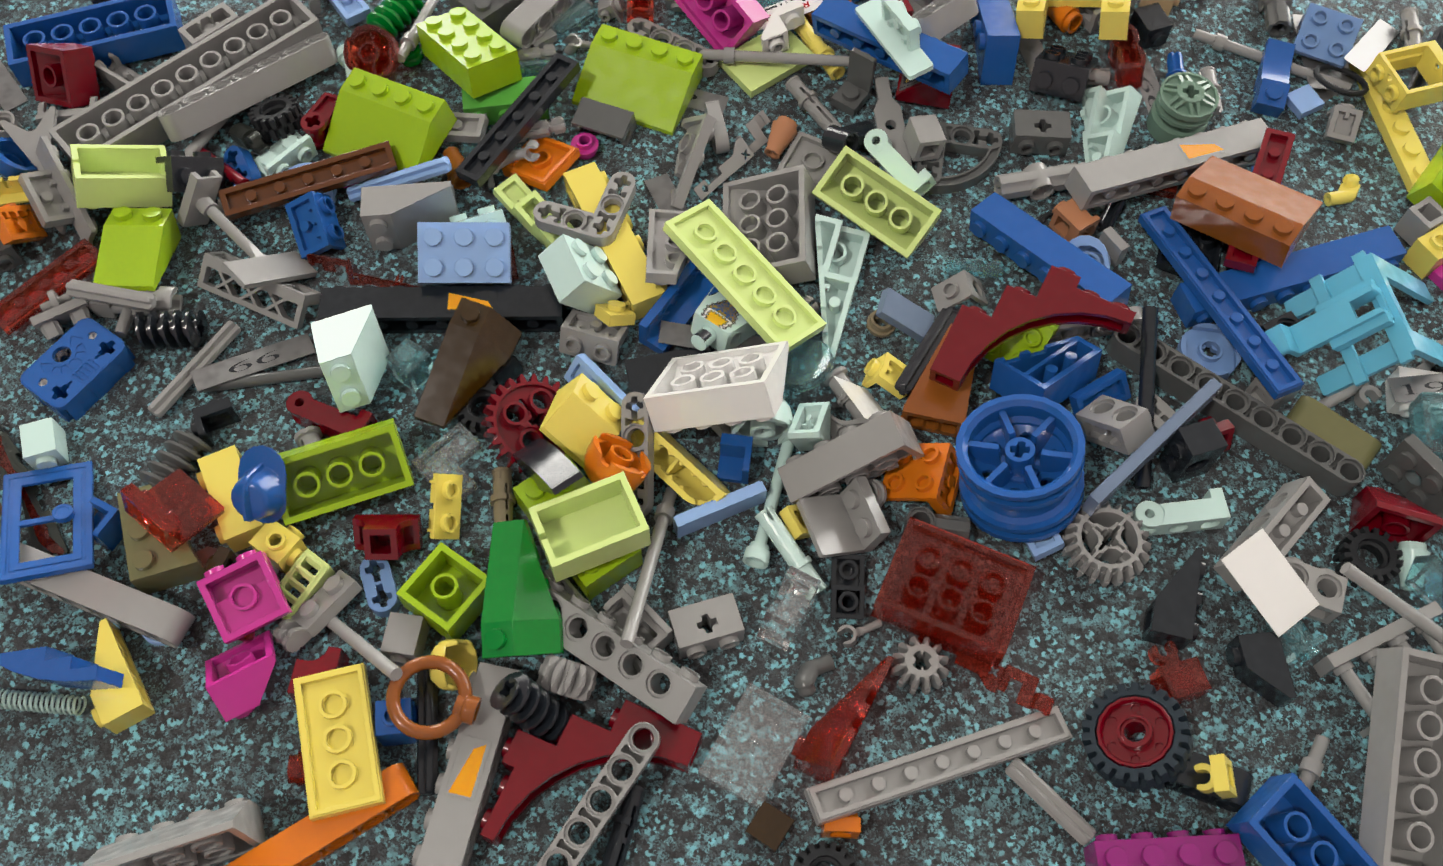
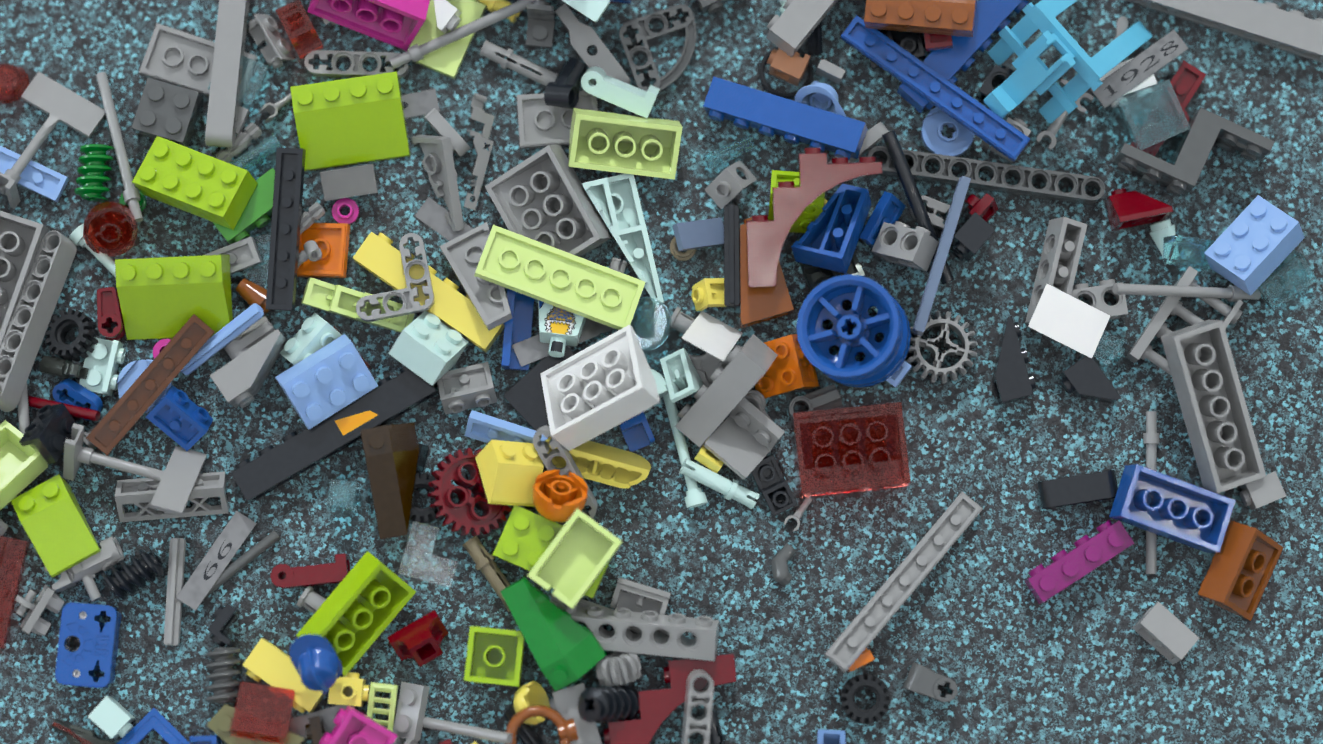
camera: 30 degrees left, 20 degrees up
(110, 295) = (72, 575): light grey axle -> none
(328, 264) = (281, 430): clear red piece -> none
(351, 356) = (300, 519): light aqua slope -> none
(372, 587) = (435, 683): medium blue beam -> none
(404, 637) = (485, 706): light grey brick -> none
(446, 511) = (452, 600): light yellow hinge -> none
(547, 466) = (514, 530): slope -> none
(615, 314) = (473, 361): light yellow plate -> none
(663, 517) = (611, 508): light grey bar -> none
(713, 511) = (645, 483): light blue tile -> none
(719, 614) = (676, 581): light grey brick -> none
(753, 746) = (770, 637): clear tile -> none
(769, 826) = (811, 686): dark brown tile -> none
(781, 134) = (505, 111): nougat cone -> none
(789, 609) = (742, 530): clear brick -> none
(830, 739) = (821, 607): clear red wedge -> none
(922, 678) = (862, 513): light grey gear -> none
(924, 137) = (628, 53): light grey brick -> none
(1026, 696) = (938, 497): clear red piece -> none
(1034, 181) = (740, 38): light grey piece -> none
(1050, 801) = (987, 562): light grey axle -> none
(1144, 762) = (1045, 493): wheel -> none
(1180, 679) = (1036, 425): clear red brick -> none
(1184, 516) = (987, 291): light aqua leg -> none
(1221, 776) = (1092, 488): light yellow tile -> none
(1335, 429) = (1068, 158): olive beam -> none
(1378, 545) = (1148, 250): black tyre -> none

